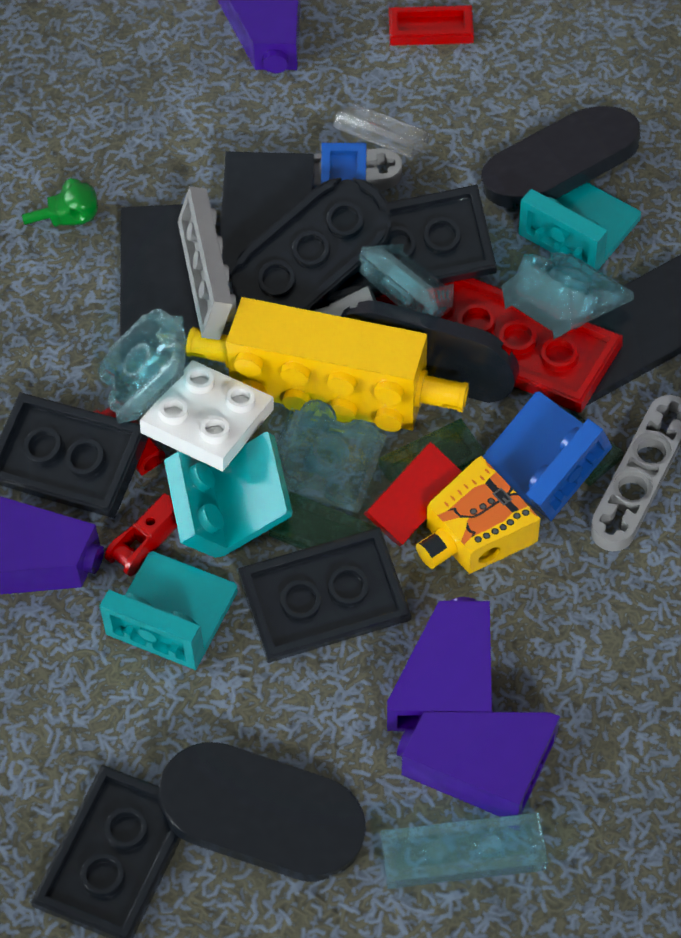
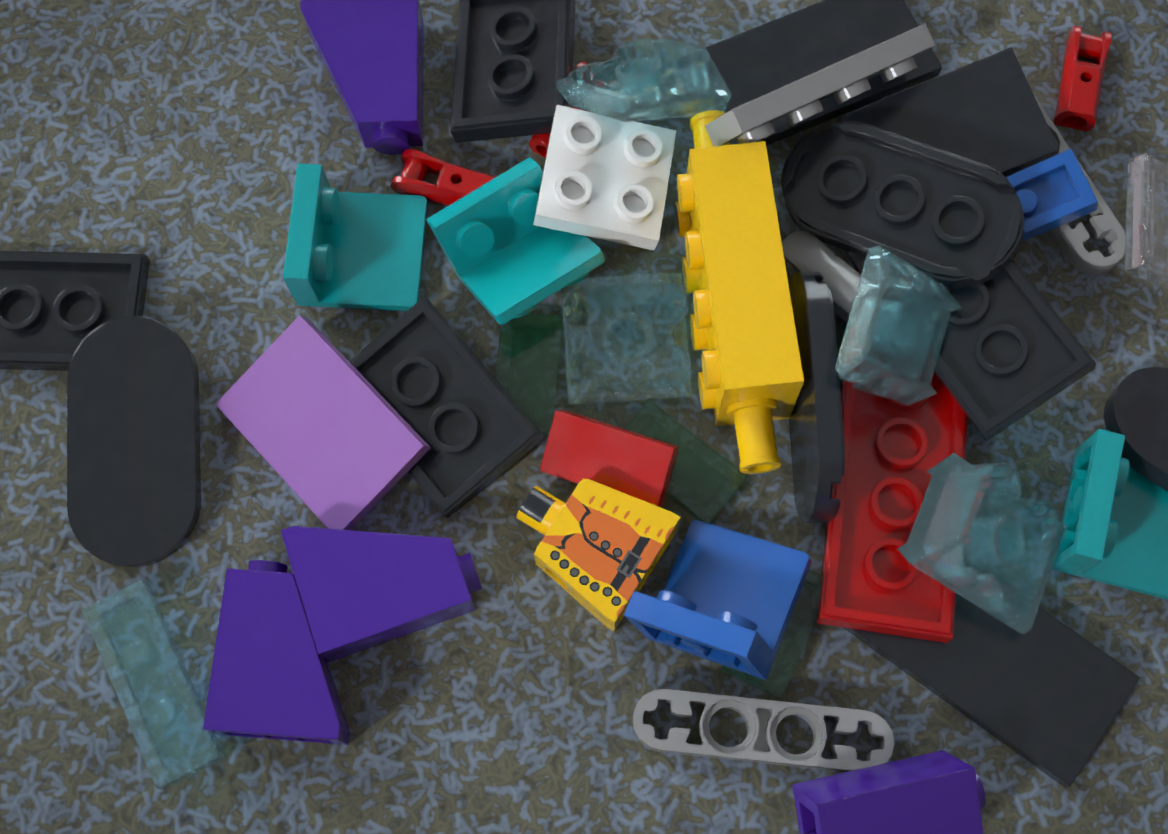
camera: 70 degrees right, 15 degrees up
(258, 133) = (1081, 80): none -> red bar
(307, 673) = (322, 426): none -> medium lavender tile

